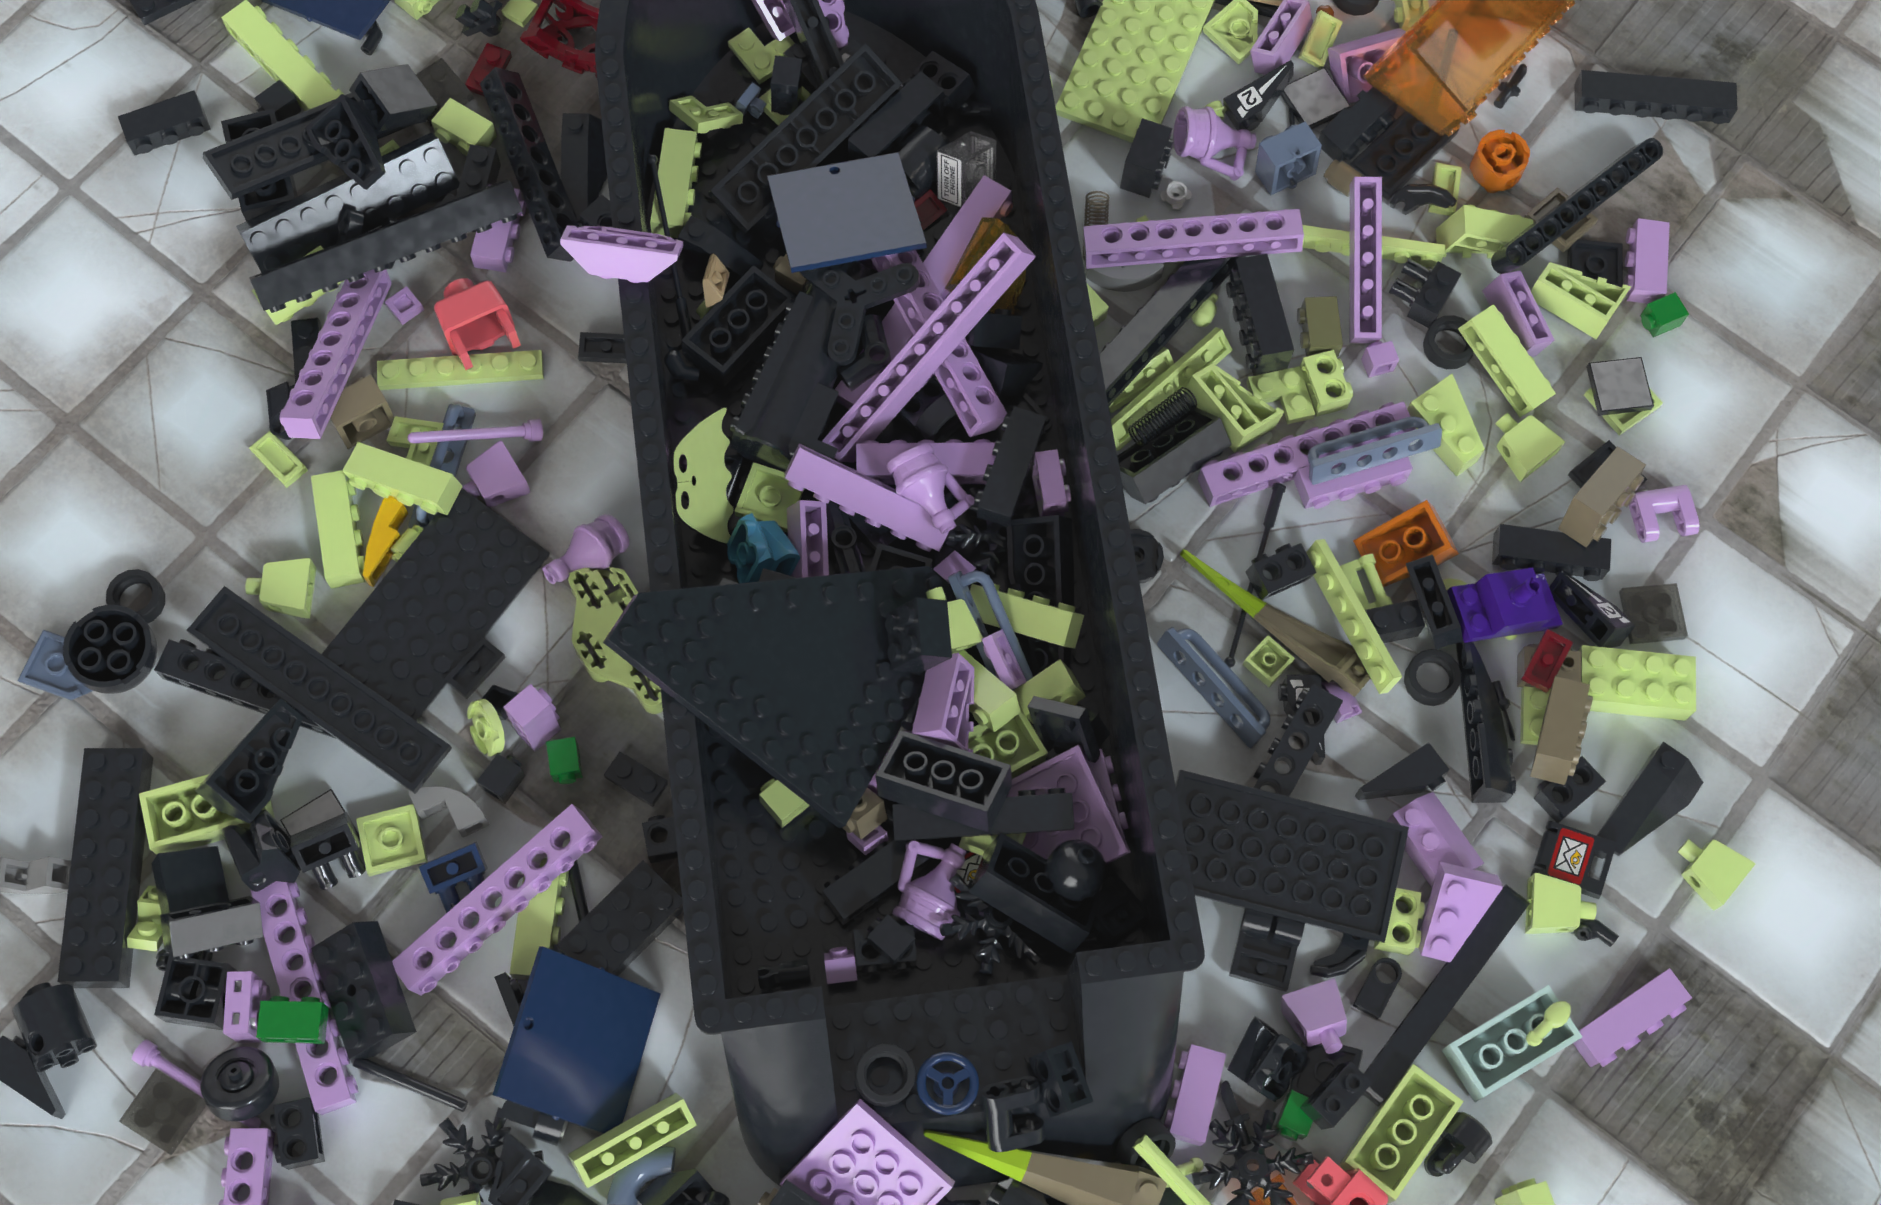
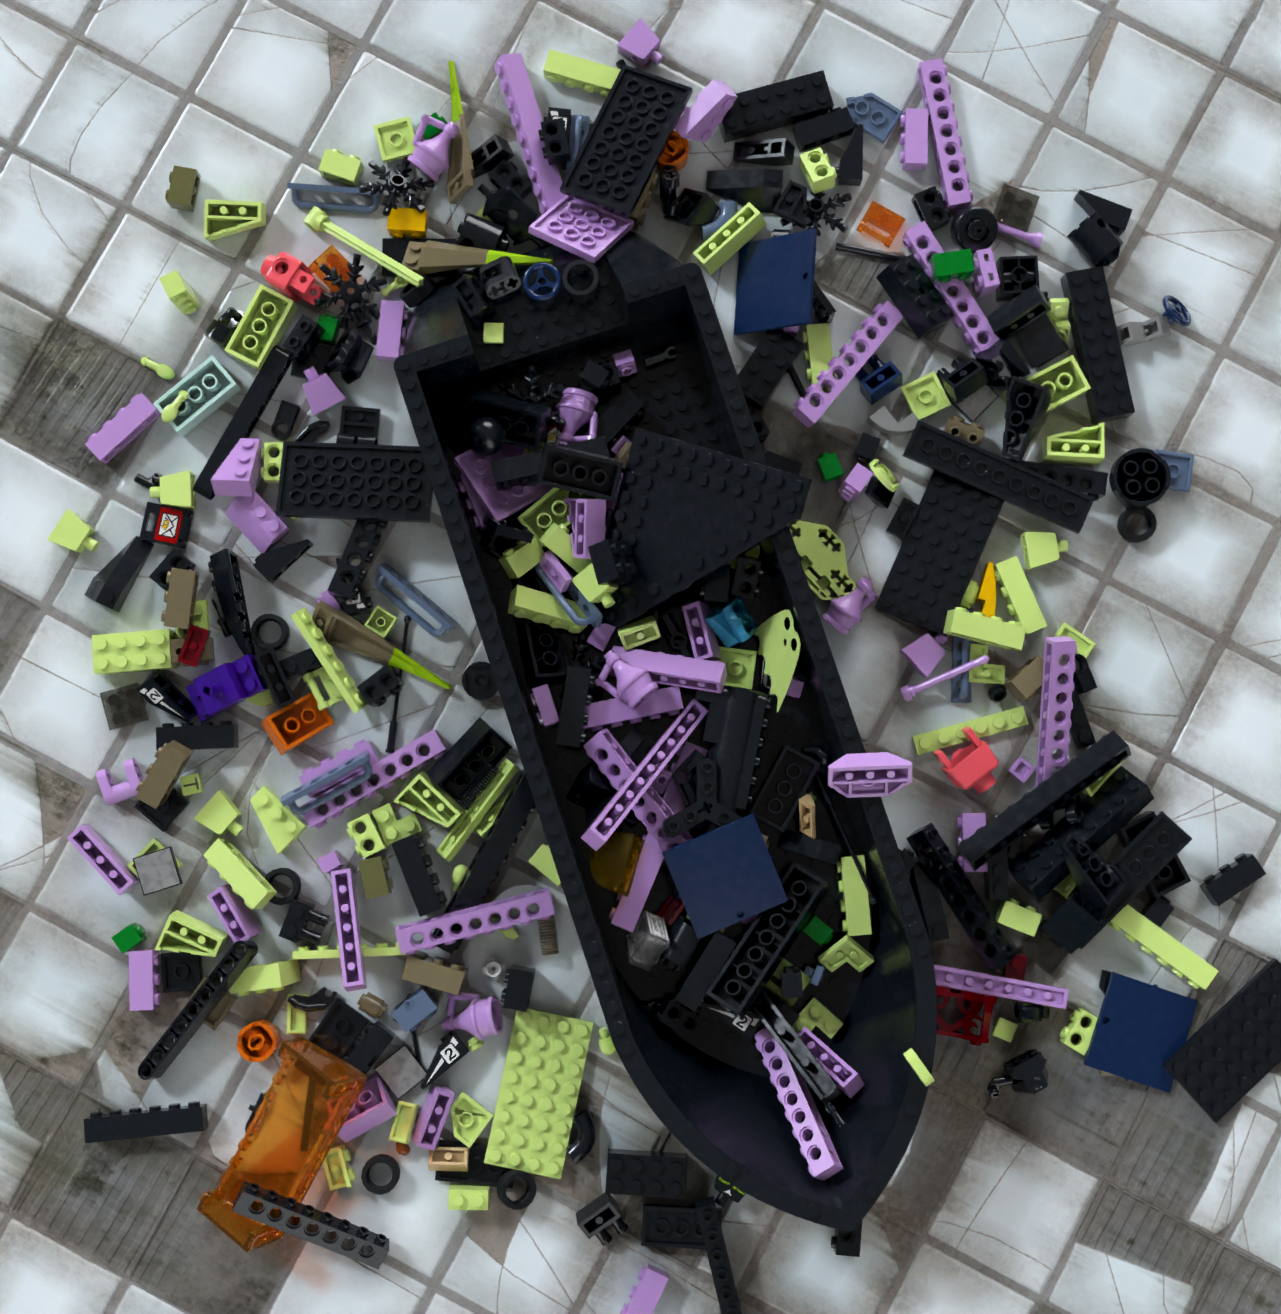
camera: 170 degrees right, 15 degrees up
(185, 718) = (1076, 447): none -> yellowish green wedge
(349, 771) = (965, 430): none -> dark tan brick
(377, 1135) = (883, 219): none -> clear orange plate
(407, 408) = (997, 692): none -> black plate
(513, 51) = (1001, 986): none -> lavender plate
(732, 148) = (818, 930): none -> green brick
(899, 554) = (639, 632): none -> yellowish green slope
(1037, 1023) = (493, 333): none -> yellowish green tile
(1252, 188) = (435, 972): none -> dark tan brick
(1561, 493) = (191, 784): none -> yellowish green tile
(1563, 1103) = (162, 370): none -> yellowish green piece
(1695, 415) = (103, 859): none -> lavender brick

